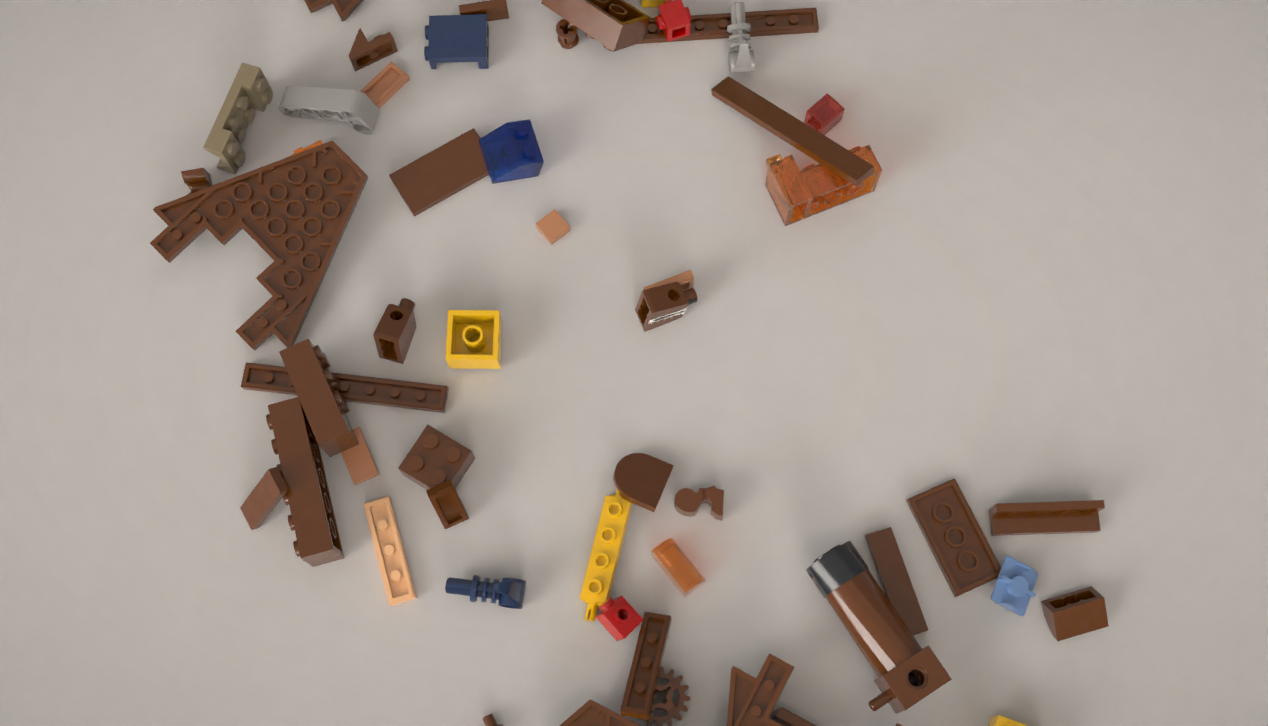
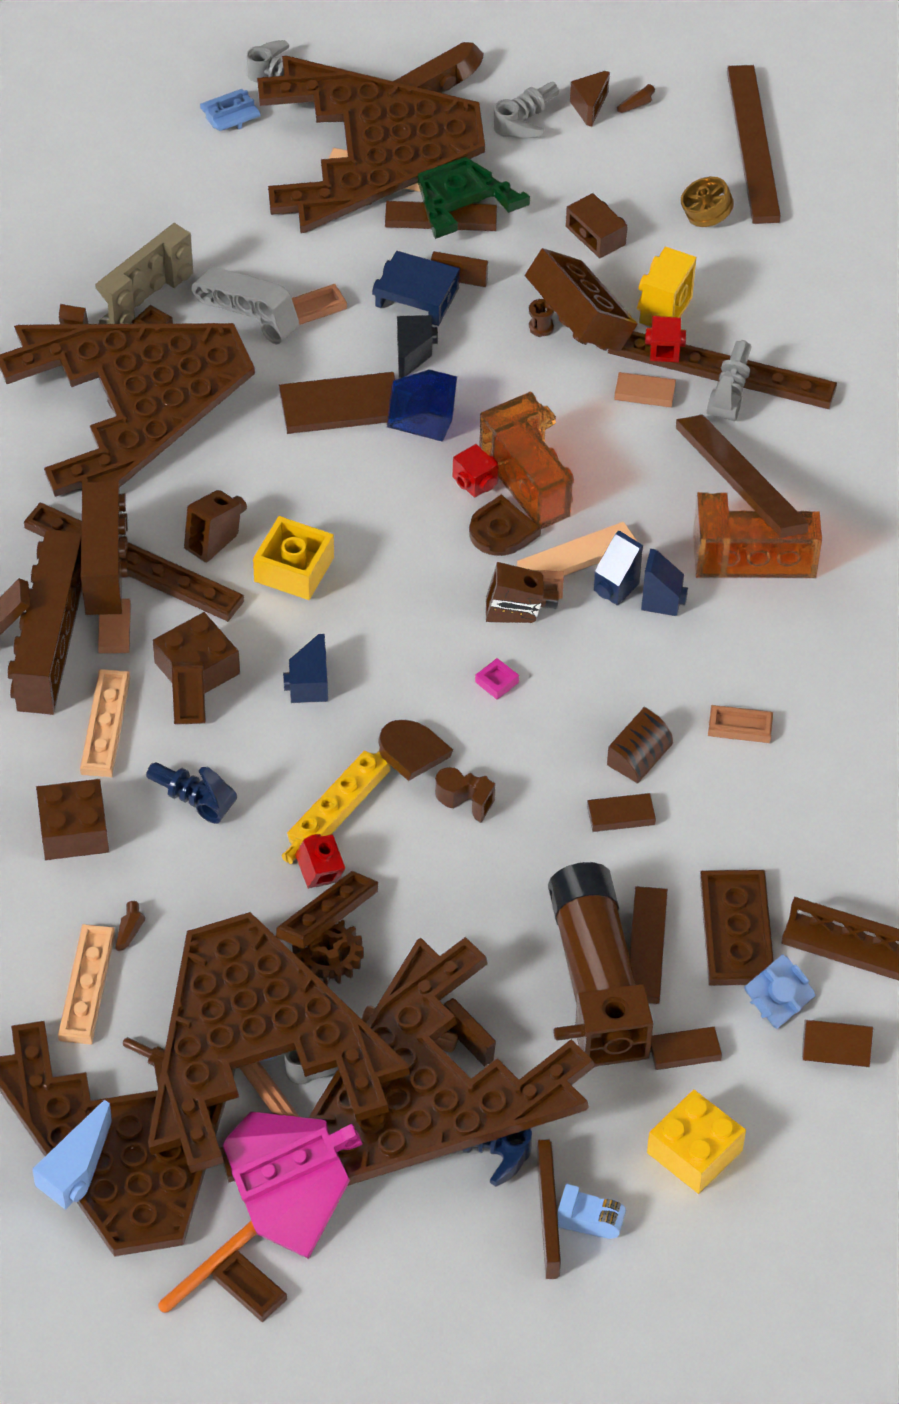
camera: 20 degrees right, 20 degrees down
(260, 152) = (152, 316): none -> reddish brown tile
(366, 53) = (314, 266): reddish brown slope -> none
(405, 660) = (72, 819): none -> reddish brown brick
(478, 94) = (414, 342): none -> black slope
(531, 441) = (308, 673): none -> dark blue slope
(553, 227) = (433, 491): nougat tile -> none
(579, 198) = (475, 470): none -> red brick
(605, 170) = (526, 464): none -> clear orange hinge
(619, 241) = (501, 528): none -> reddish brown tile
(674, 69) = (645, 389): none -> nougat tile
(677, 383) = (497, 678): none -> dark pink tile
(677, 566) = (408, 841): clear orange brick -> none
(689, 242) = (576, 553): none -> light nougat tile
(731, 250) = (619, 569): none -> slope
(770, 251) = (662, 586): none -> dark blue slope
(814, 403) = (639, 745): none -> reddish brown brick
(824, 114) = (794, 482): clear red brick -> none
(824, 468) = (621, 812): none -> reddish brown tile
(877, 349) = (740, 724): none -> nougat tile
(967, 664) = (685, 1048): none -> reddish brown tile

